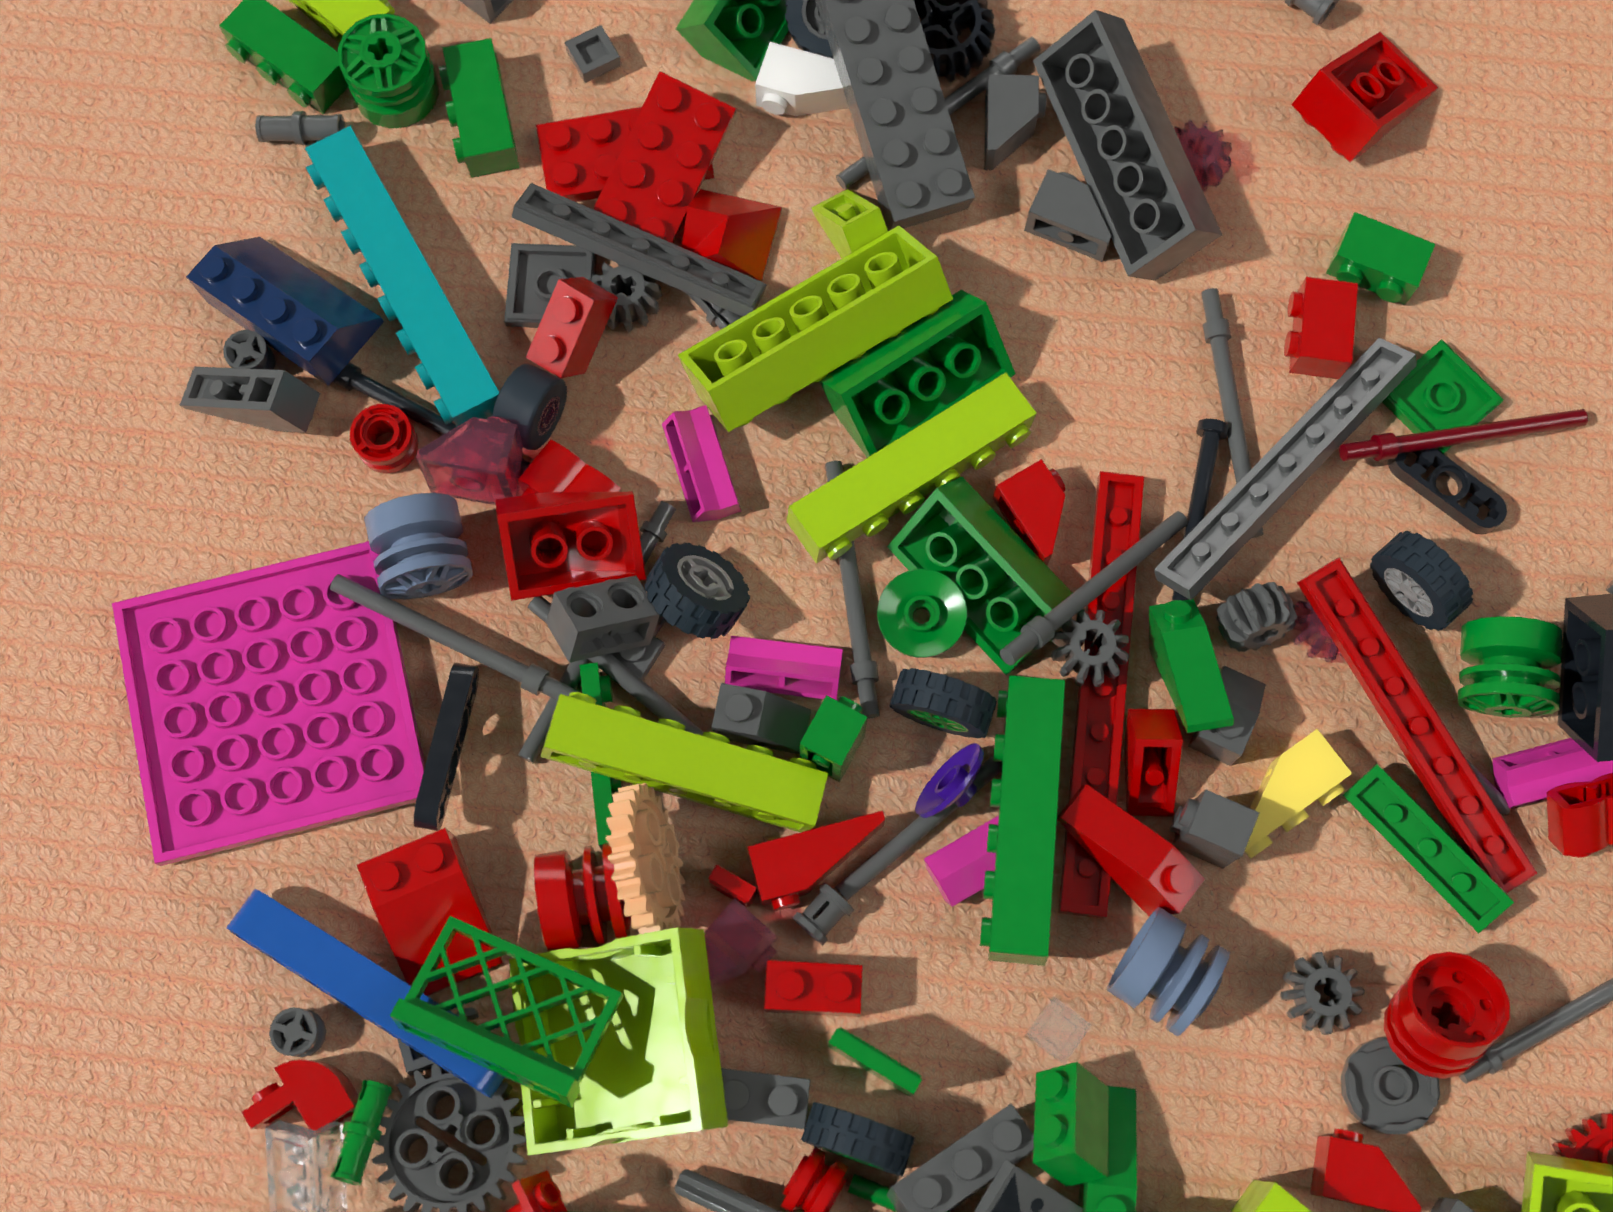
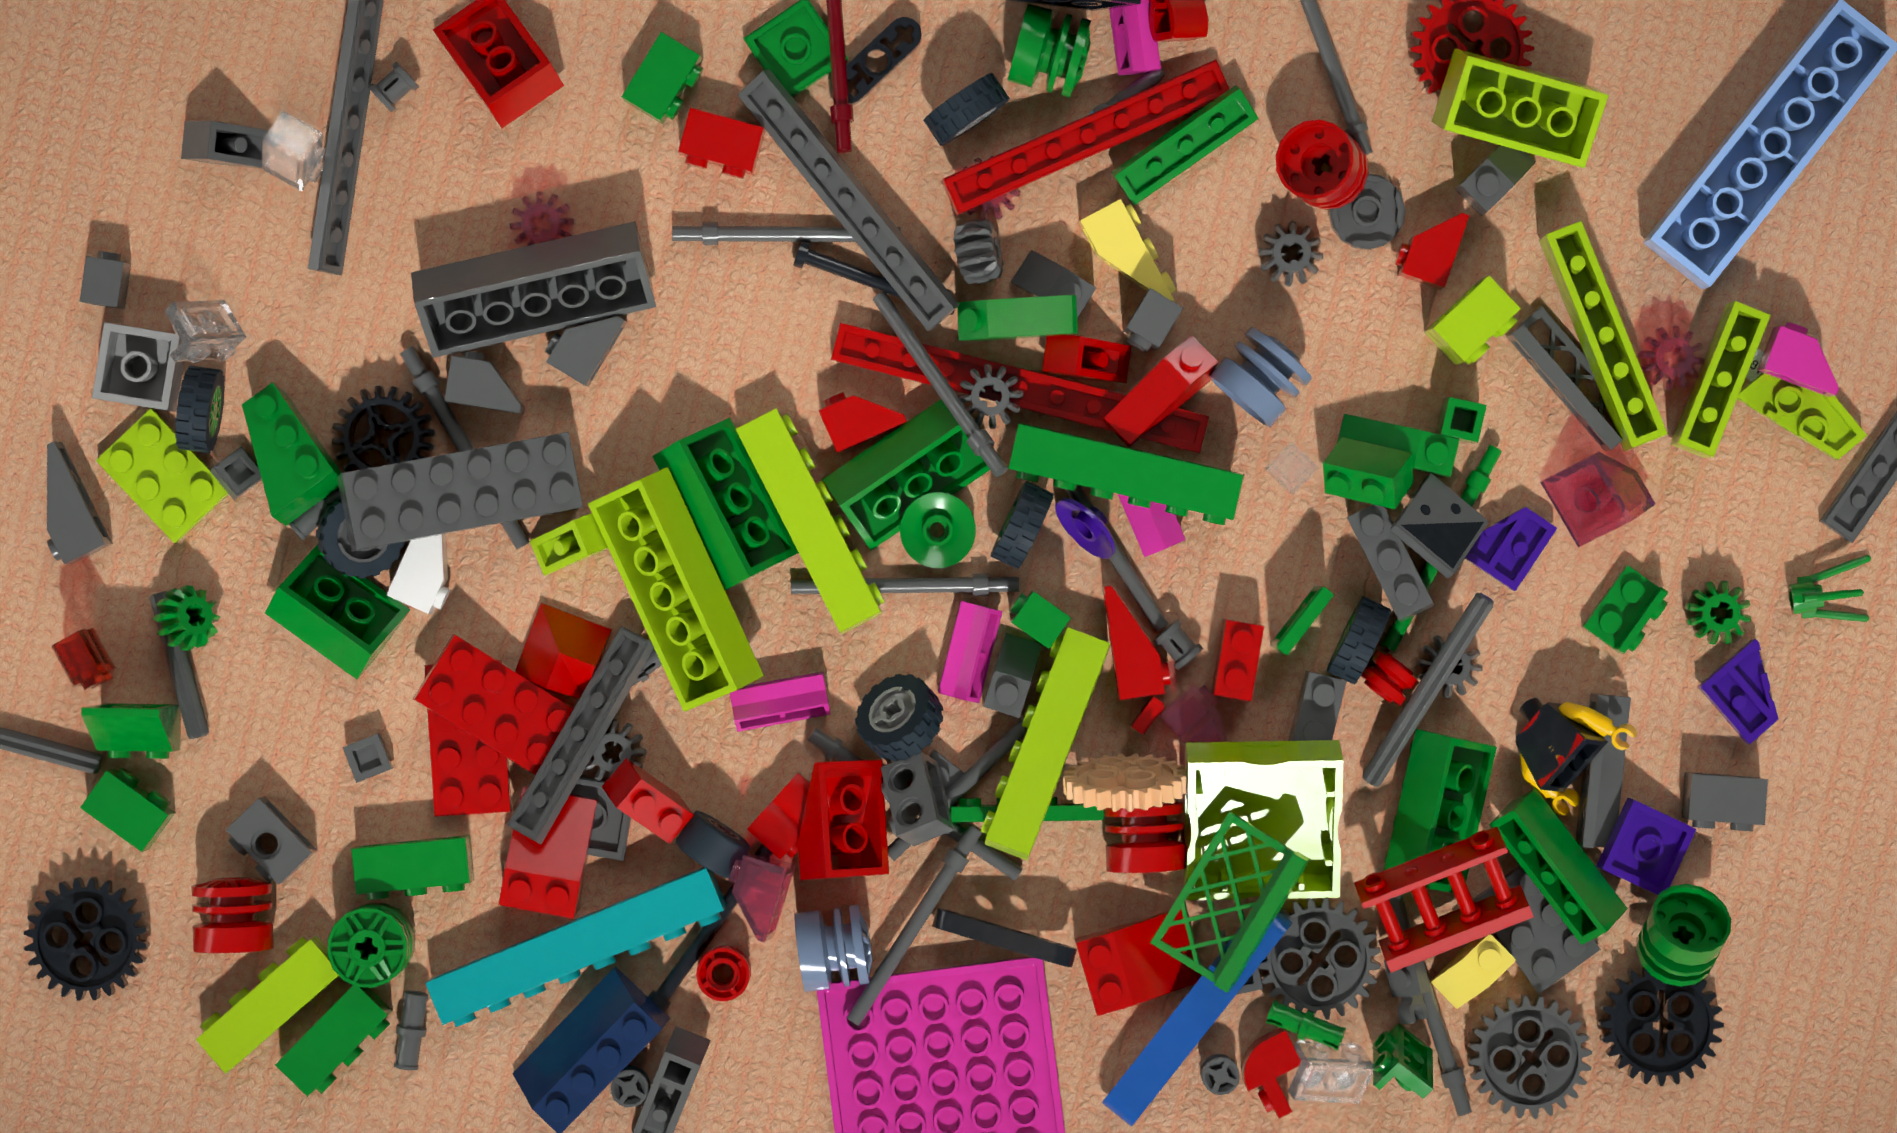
camera: 85 degrees left, 15 degrees up
(487, 247) = (551, 874): none -> red slope

